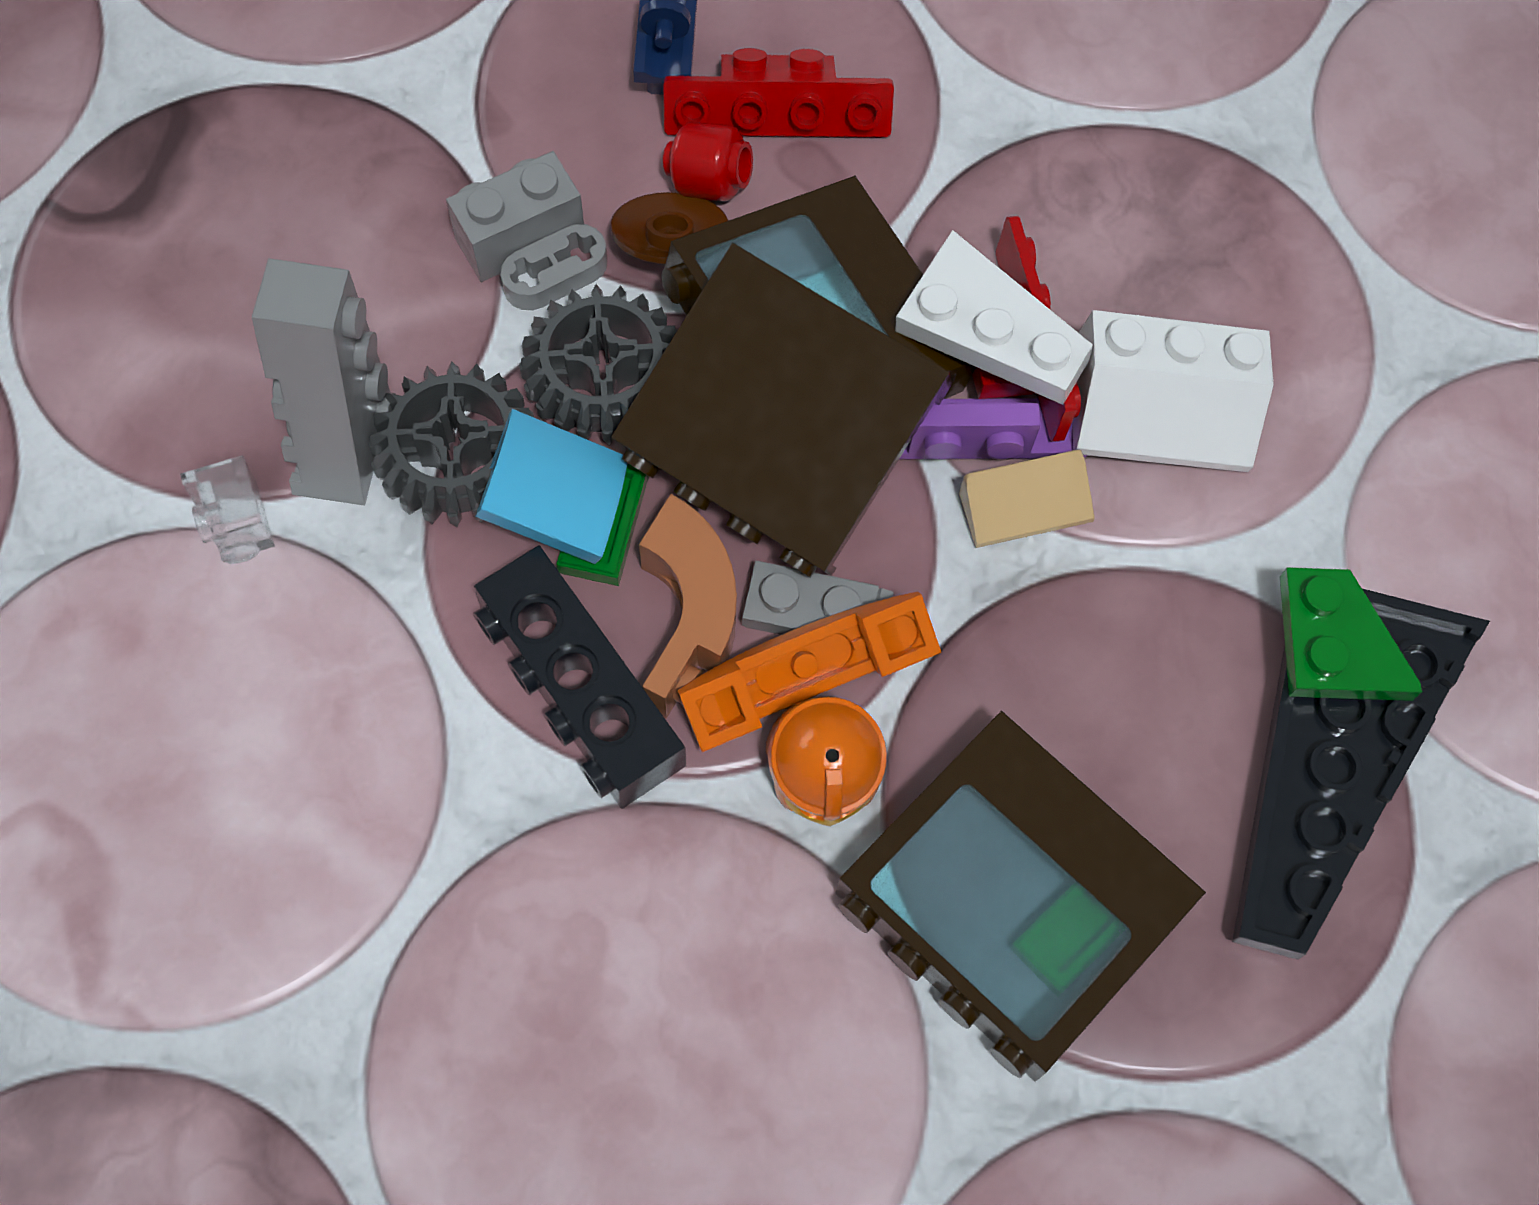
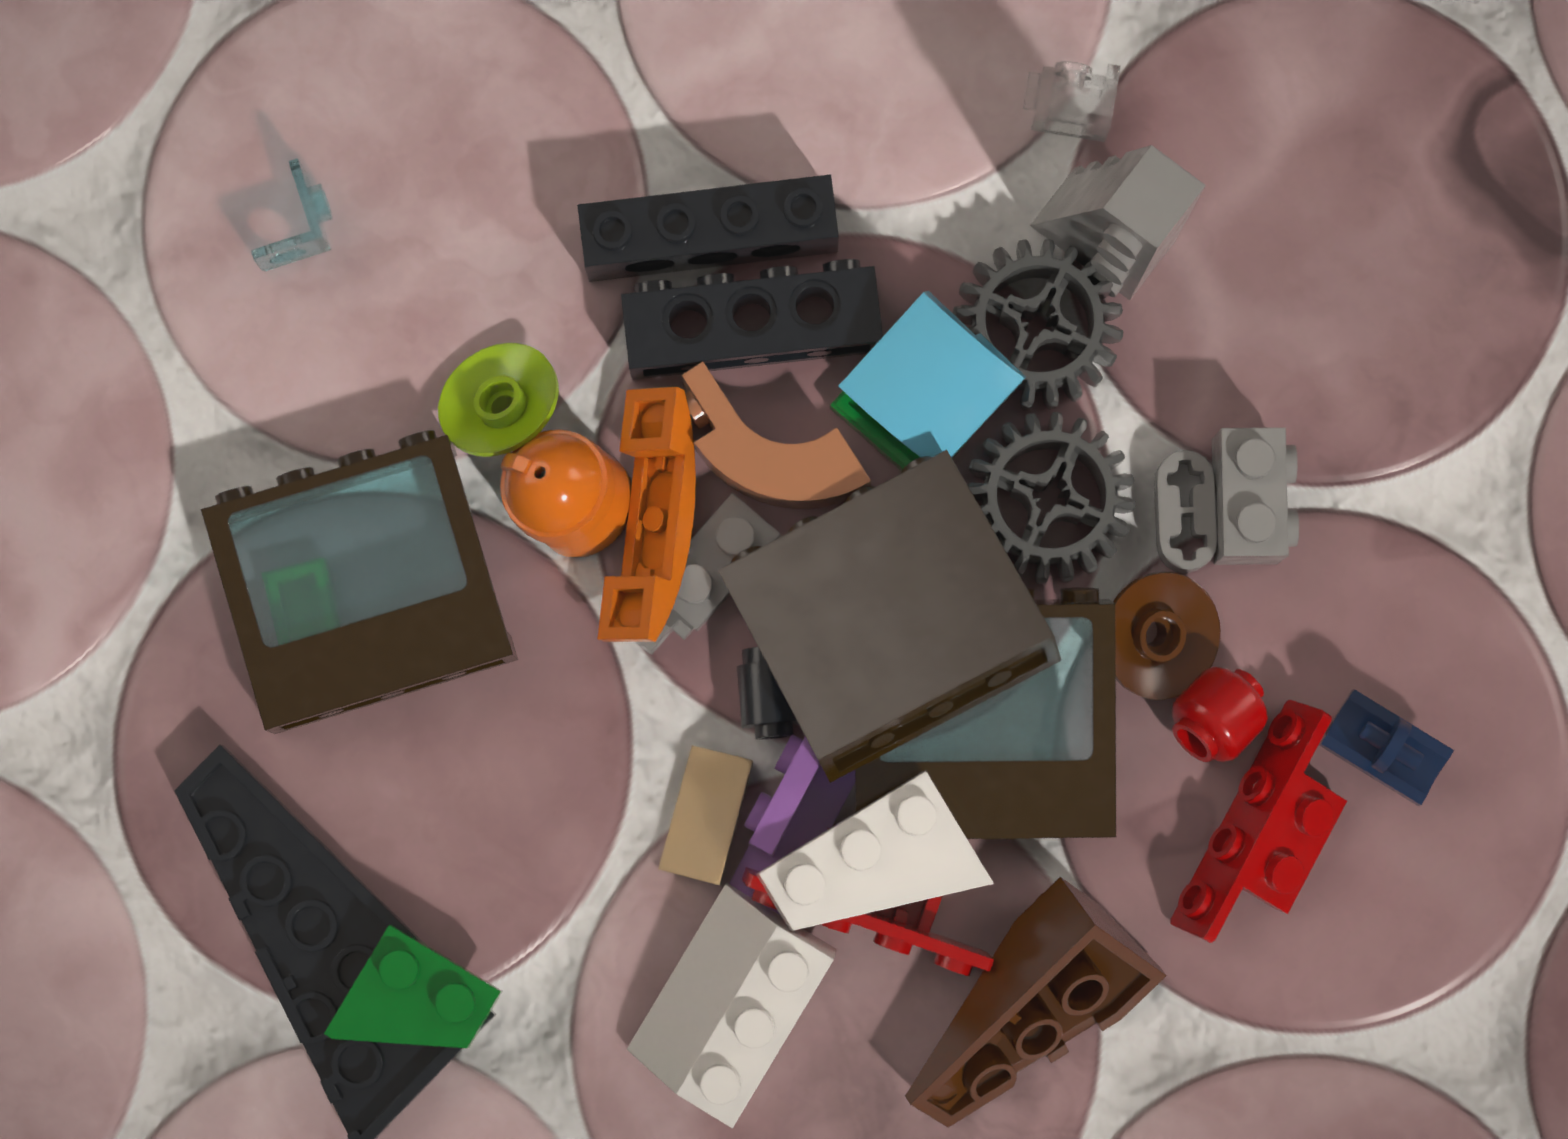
camera: 125 degrees right, 15 degrees up
(512, 757) = (708, 228): none -> black brick
(689, 1140) = (305, 244): none -> clear light blue bracket
(758, 886) = (486, 385): none -> lime dish
(903, 499) = (762, 699): none -> black brick
(977, 183) = (1048, 982): none -> reddish brown wedge

